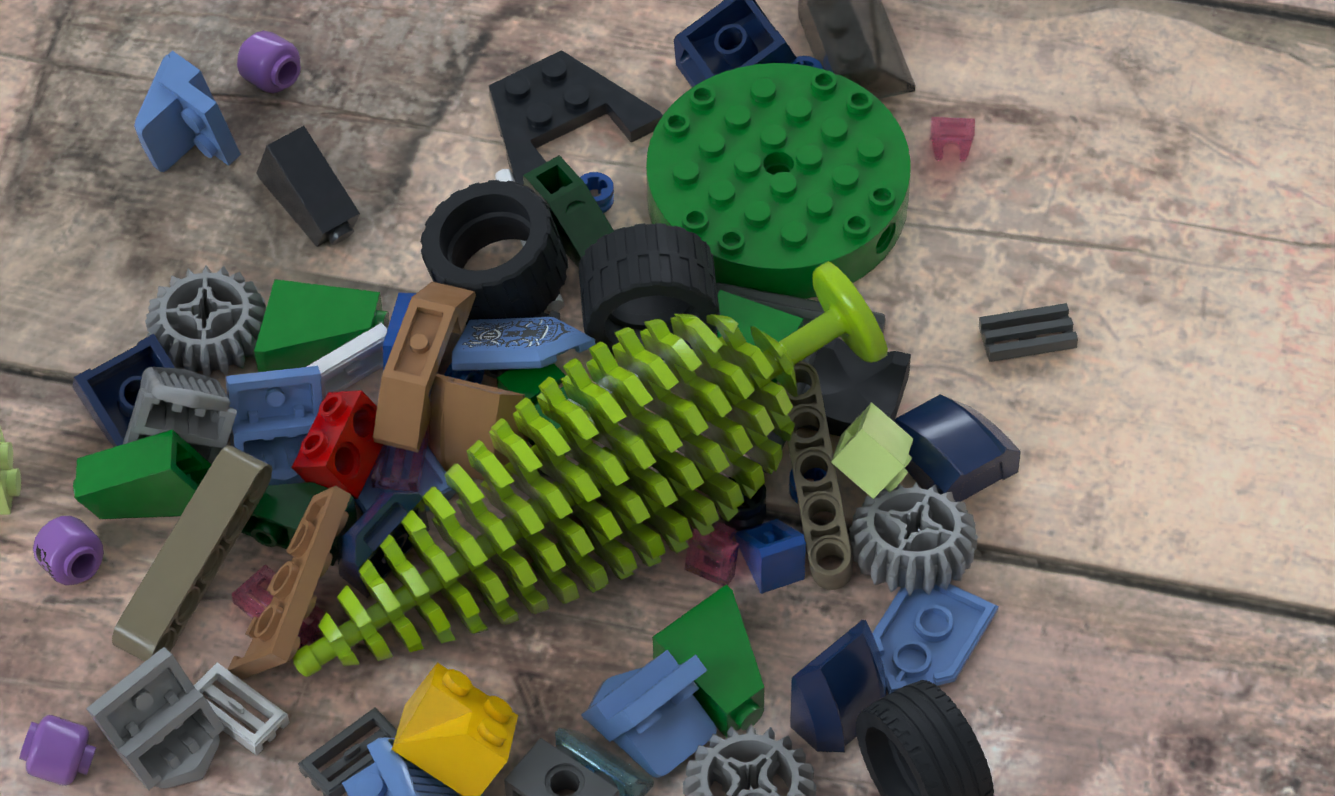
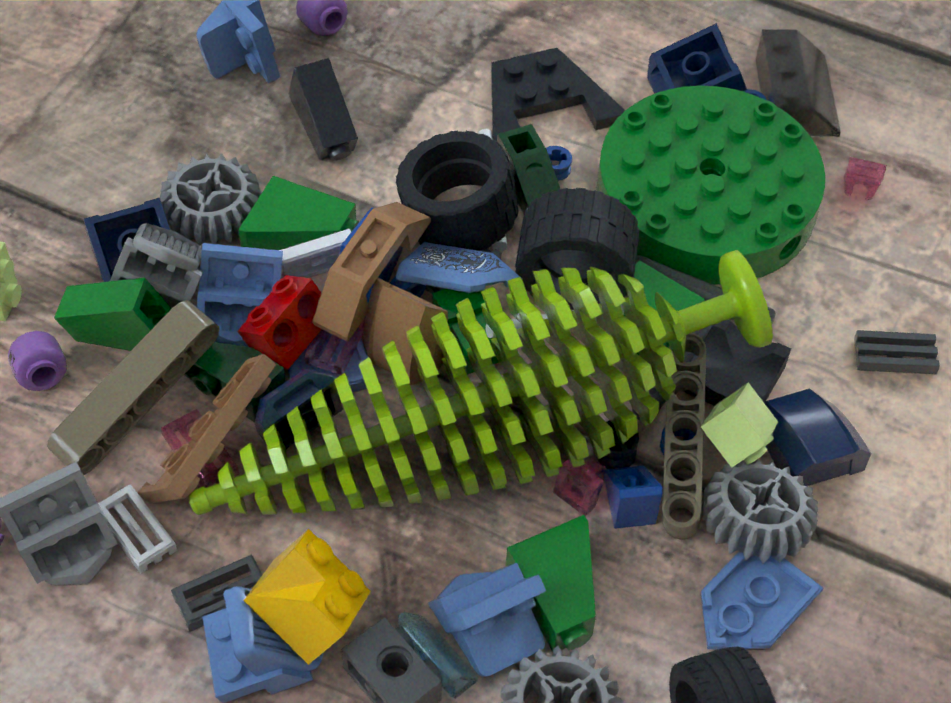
camera: 10 degrees right, 0 degrees up
(836, 689) = (662, 634): dark blue slope -> none

